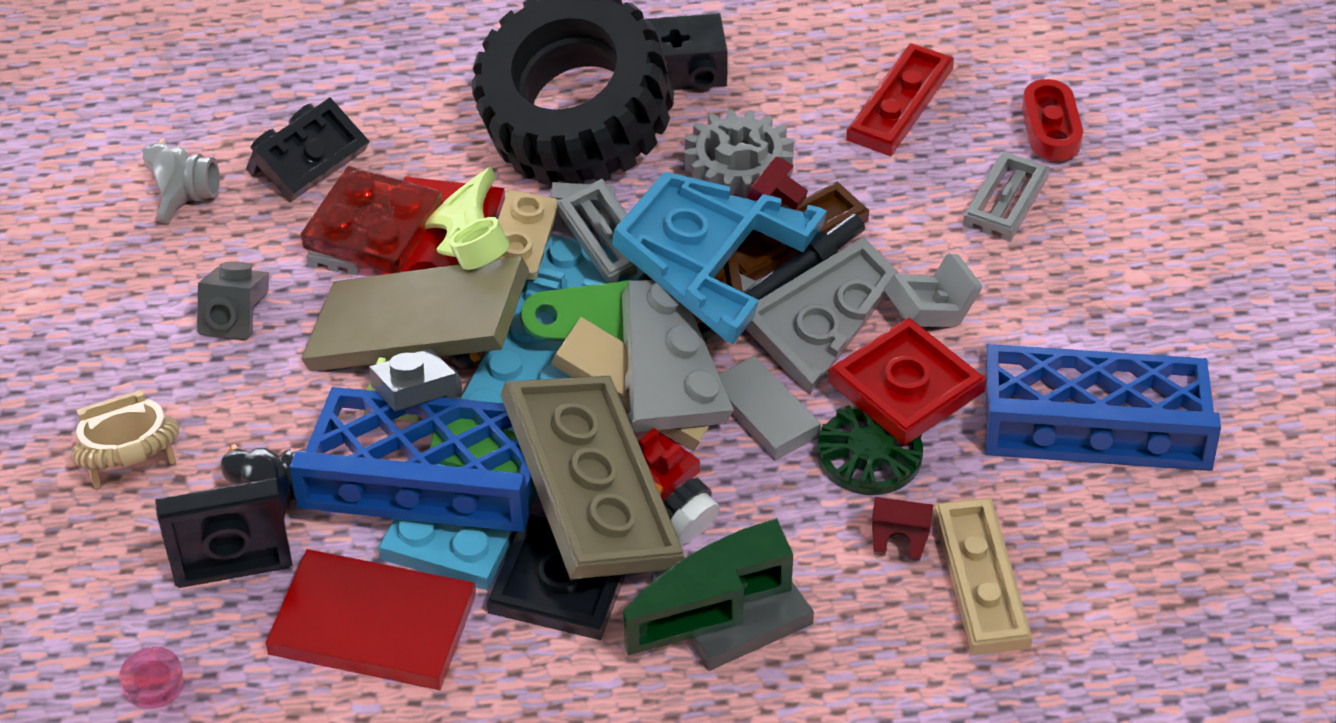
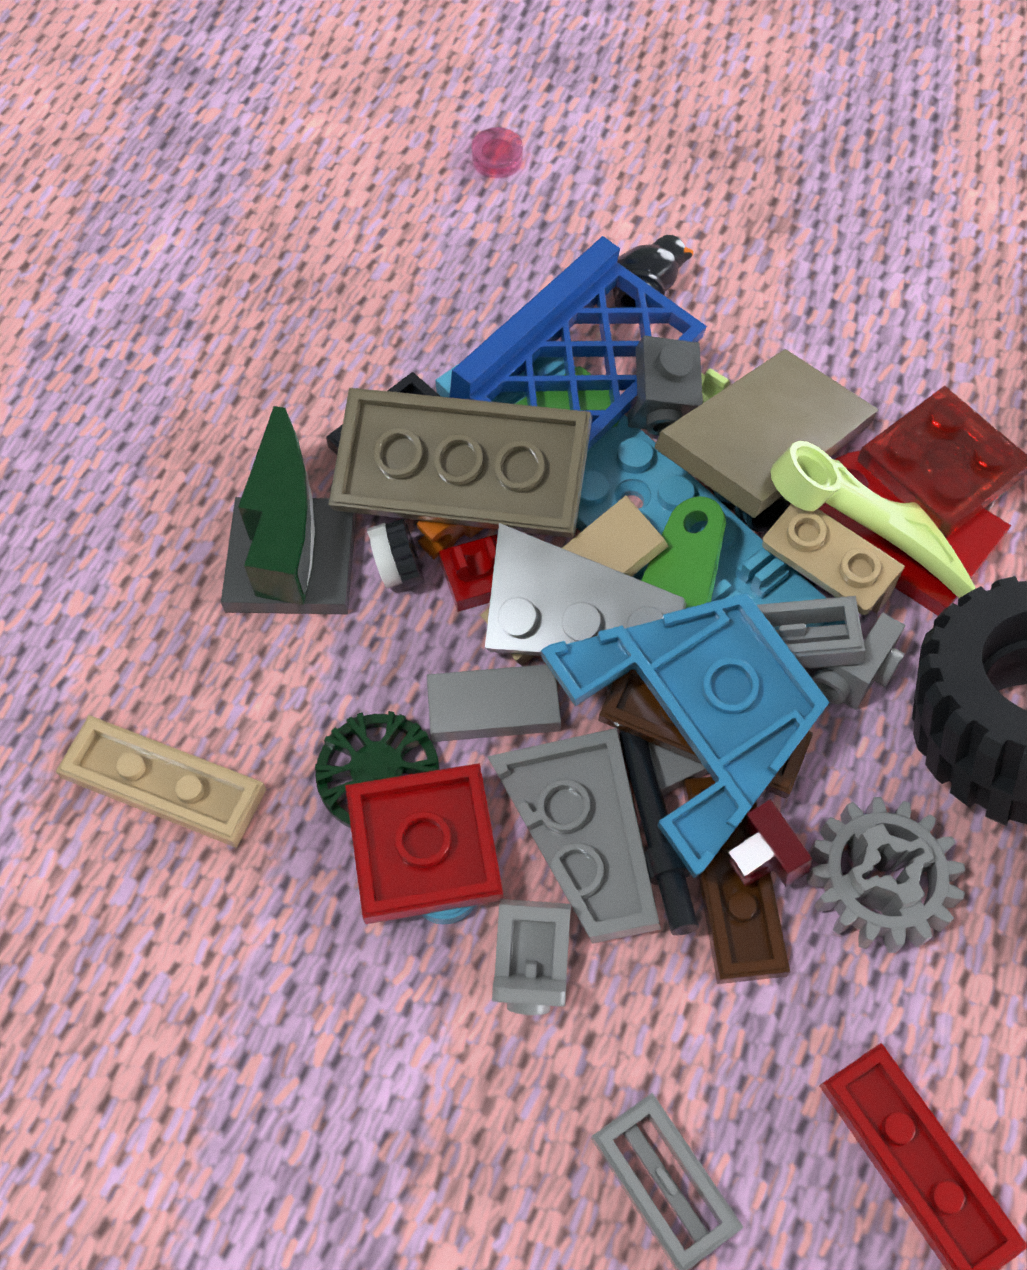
camera: 120 degrees right, 15 degrees up
(122, 434) = (776, 203): tan piece -> none
(224, 533) = (580, 195): black tile -> none
(228, 300) = (899, 322): dark grey bracket -> none
(372, 619) = (455, 298): red tile -> none
(902, 518) = (260, 732): dark red tile -> none
(1094, 427) = (221, 1016): blue fence -> none

